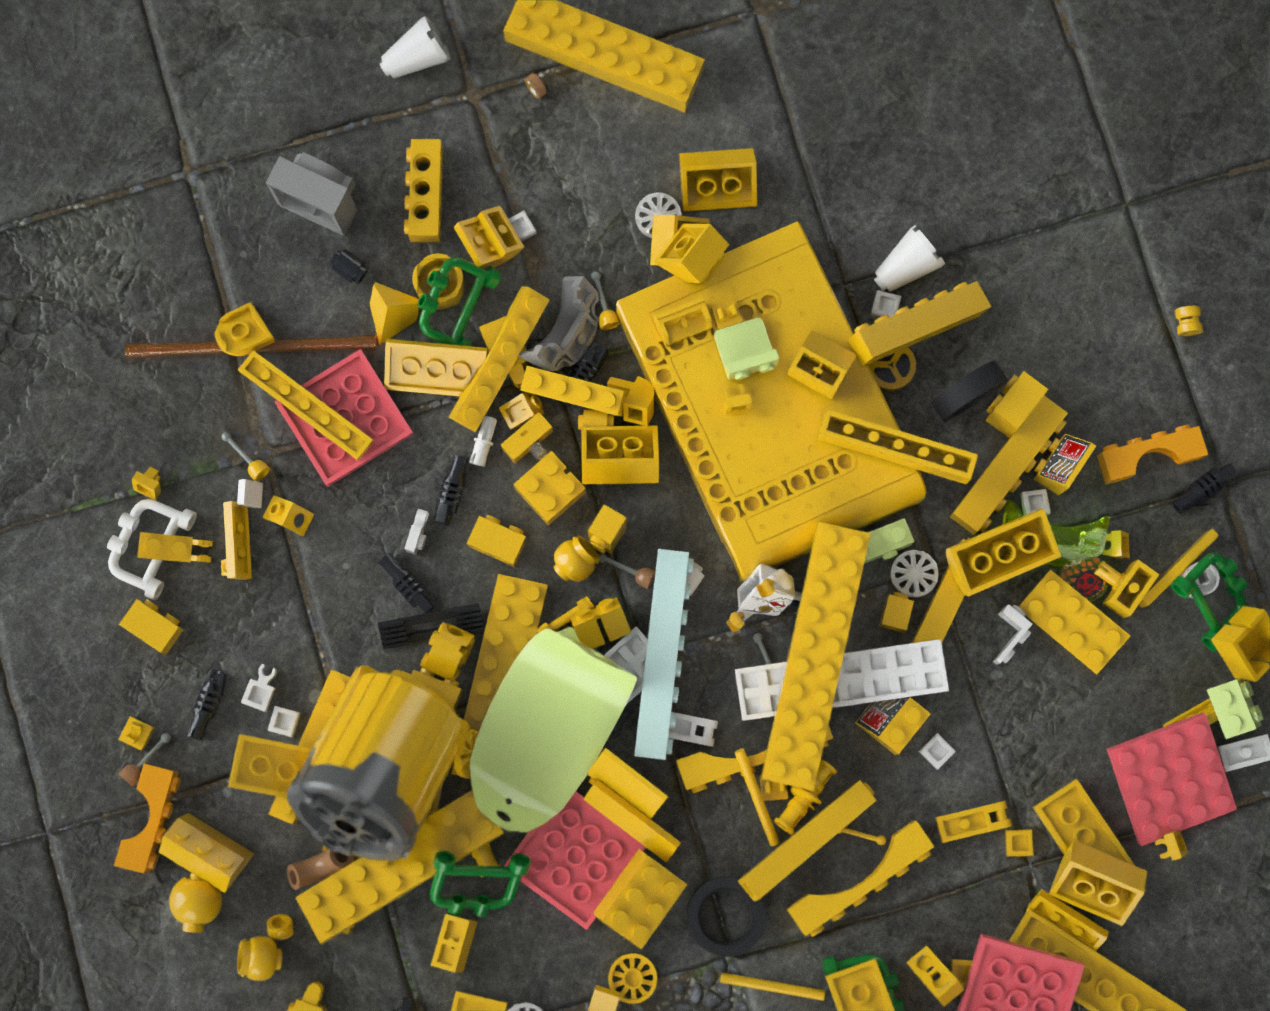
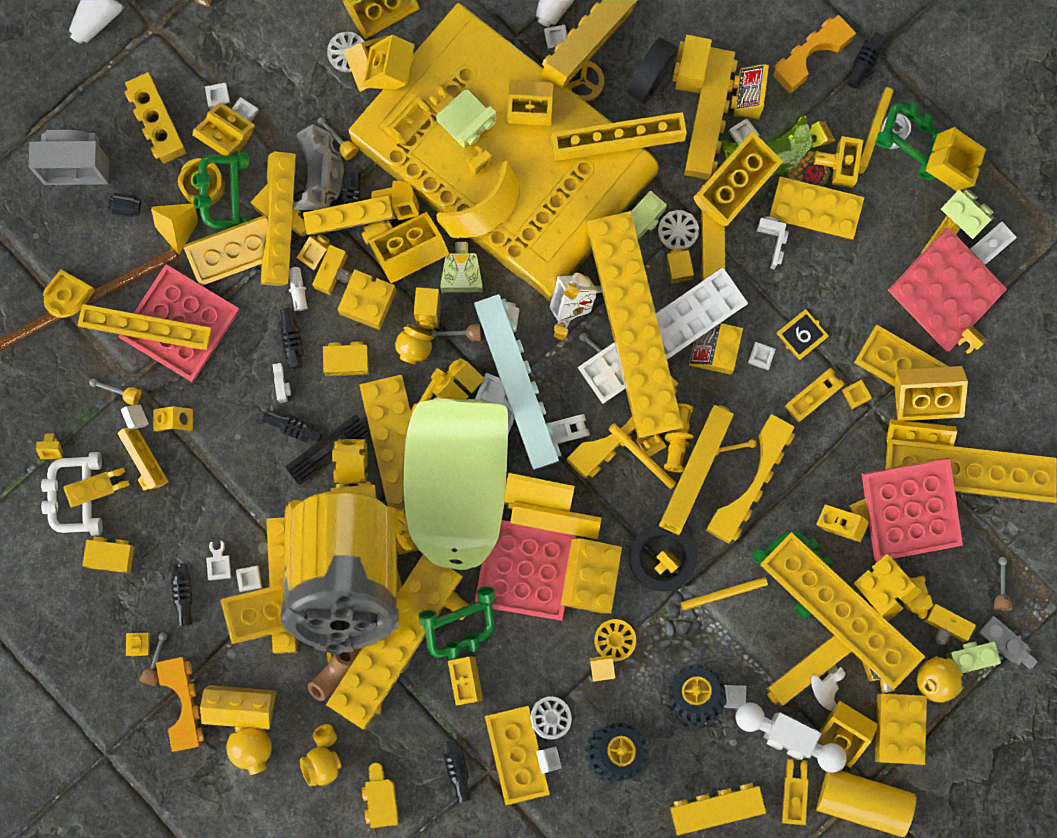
camera: 25 degrees left, 0 degrees up
(501, 195) = (216, 94): none -> white tile
(663, 506) = (461, 271): none -> yellowish green torso
(721, 461) = (488, 213): none -> yellow windscreen
(729, 923) = (668, 561): none -> yellow tile
(992, 749) = (802, 334): none -> piece

